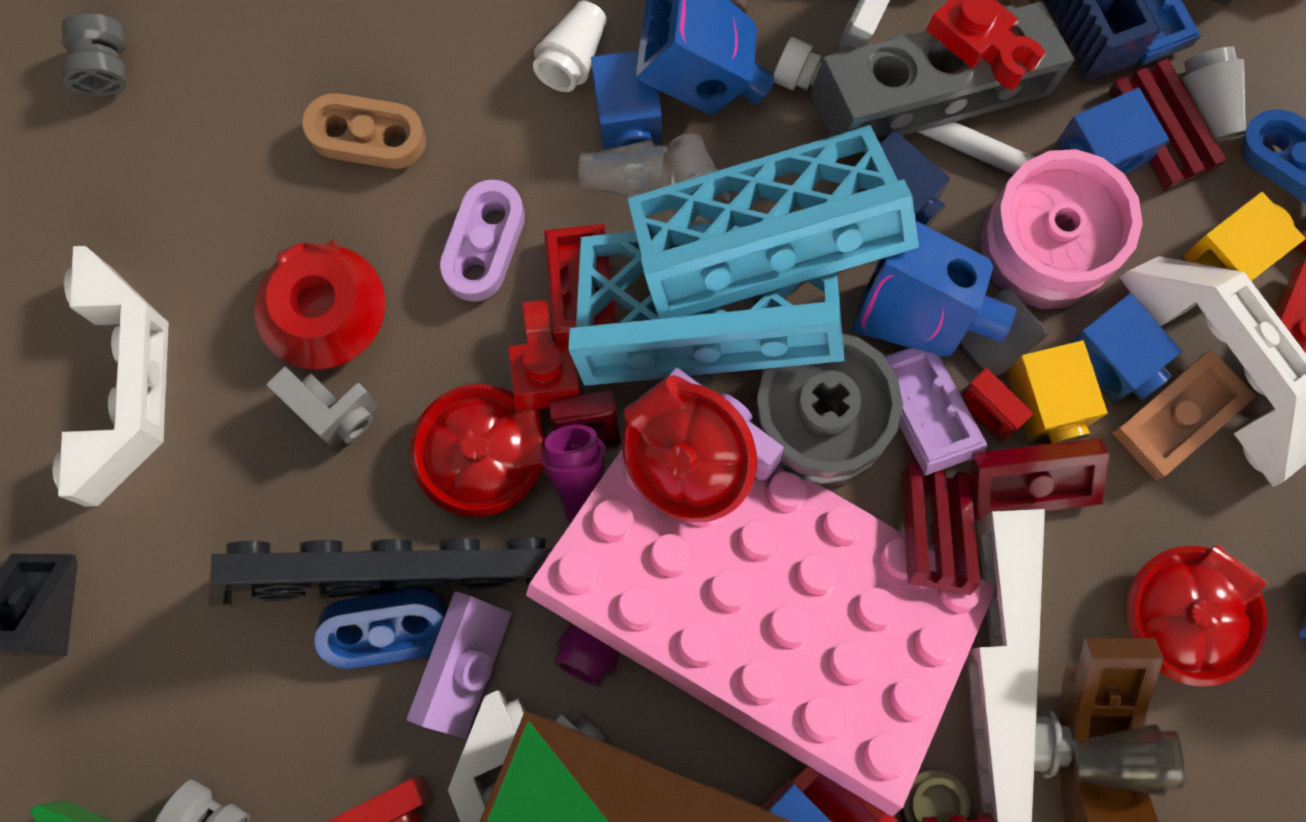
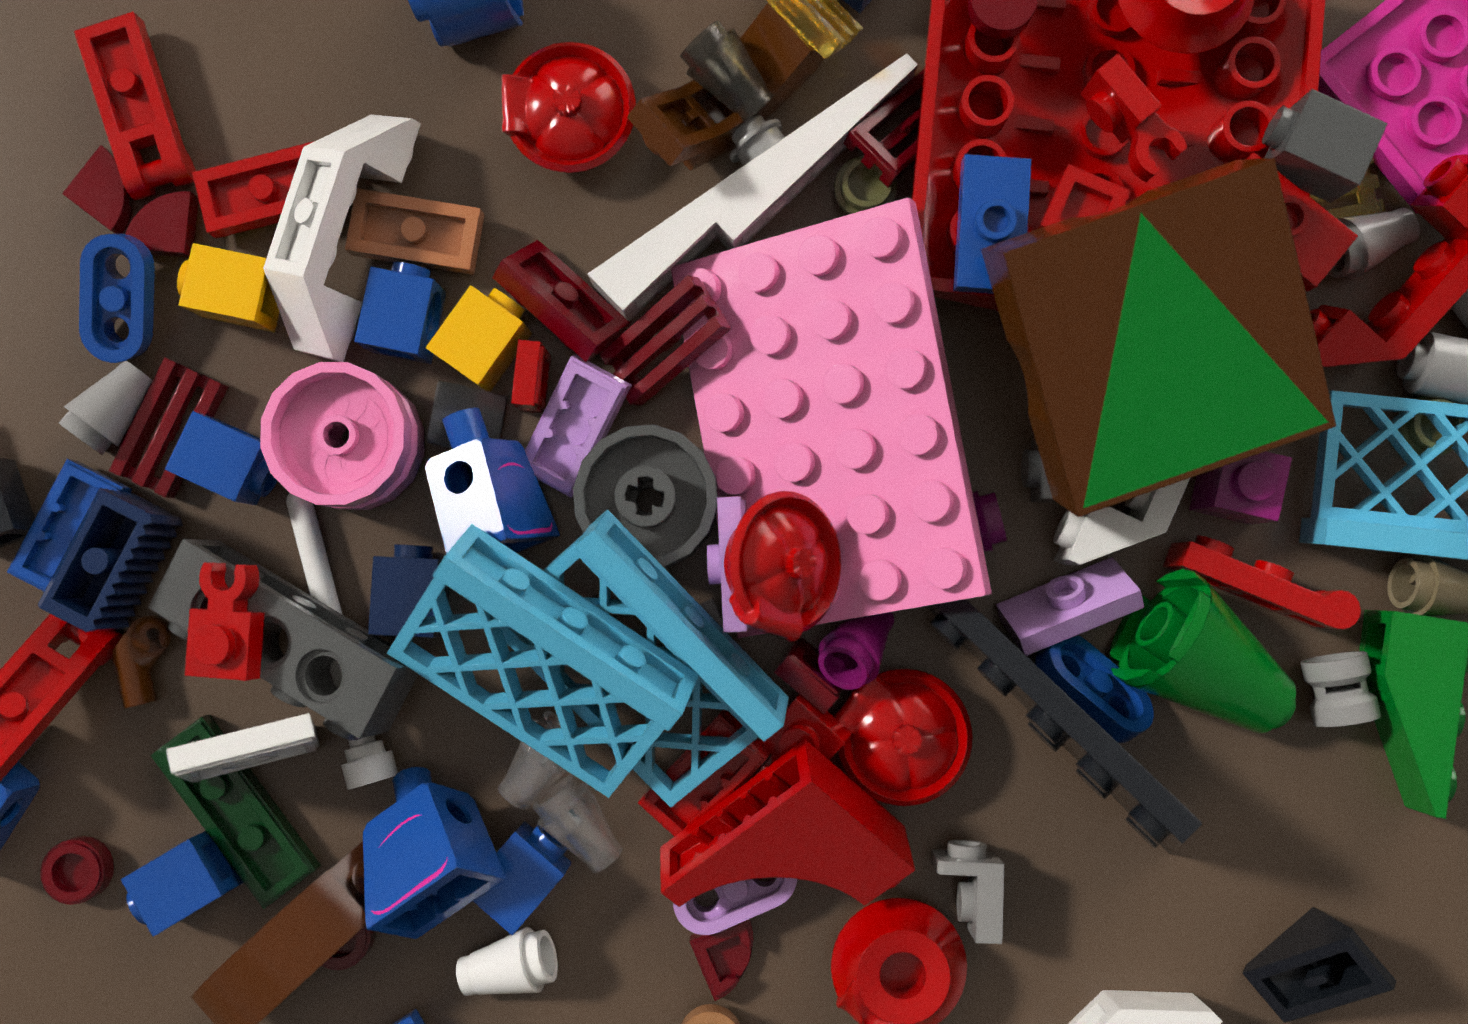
camera: 130 degrees left, 10 degrees up
(326, 732) = (1202, 657): none -> green cone
(440, 194) = (724, 956): none -> dark red tile
(486, 314) = (795, 823): none -> red arch

